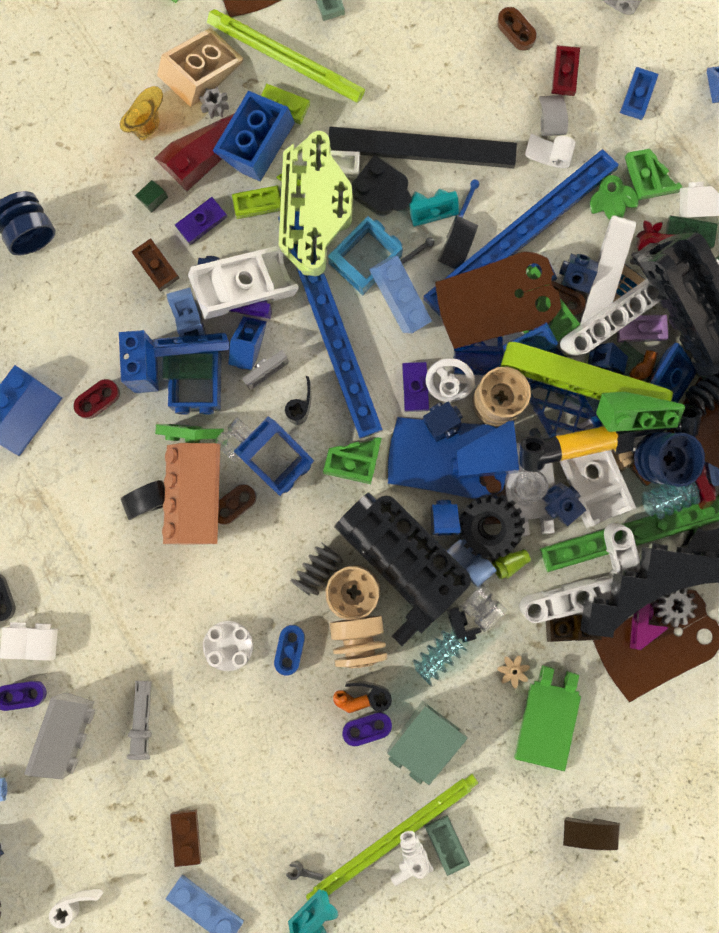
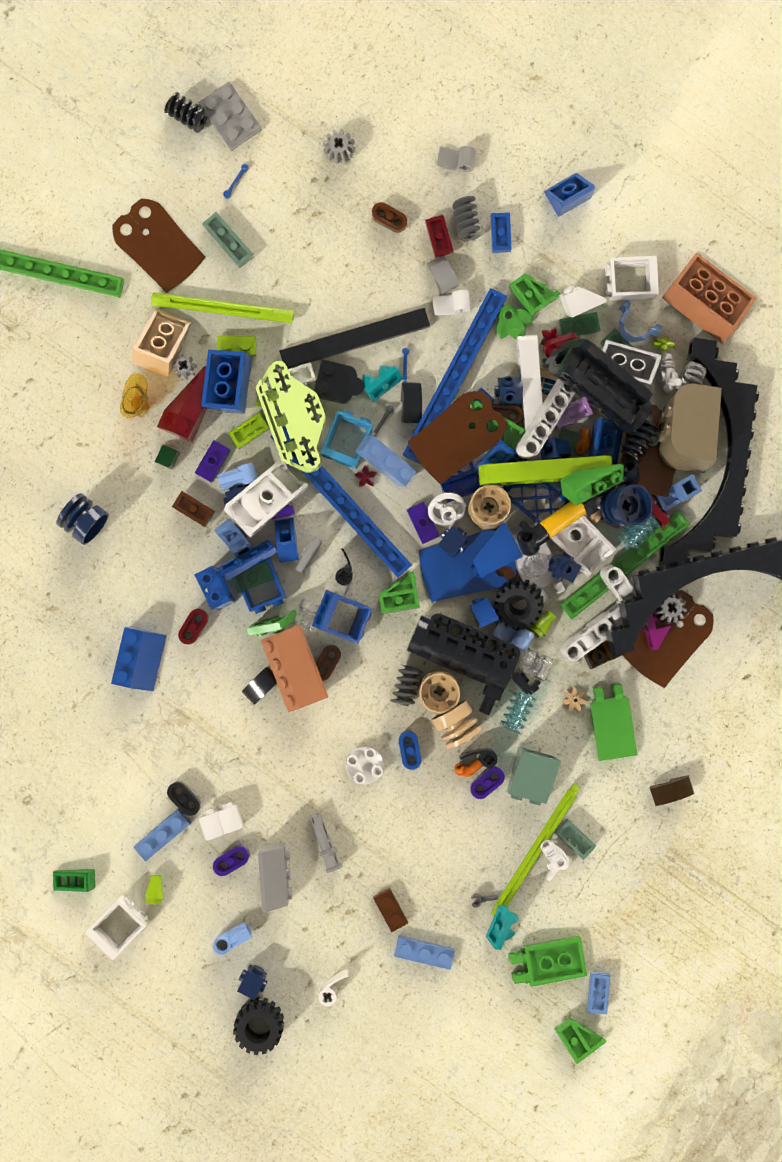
camera: 30 degrees left, 5 degrees up
(221, 247) = (242, 476): none -> light blue piece
(370, 307) = (366, 476): none -> dark red plant
(605, 61) = (464, 218): none -> dark grey piece

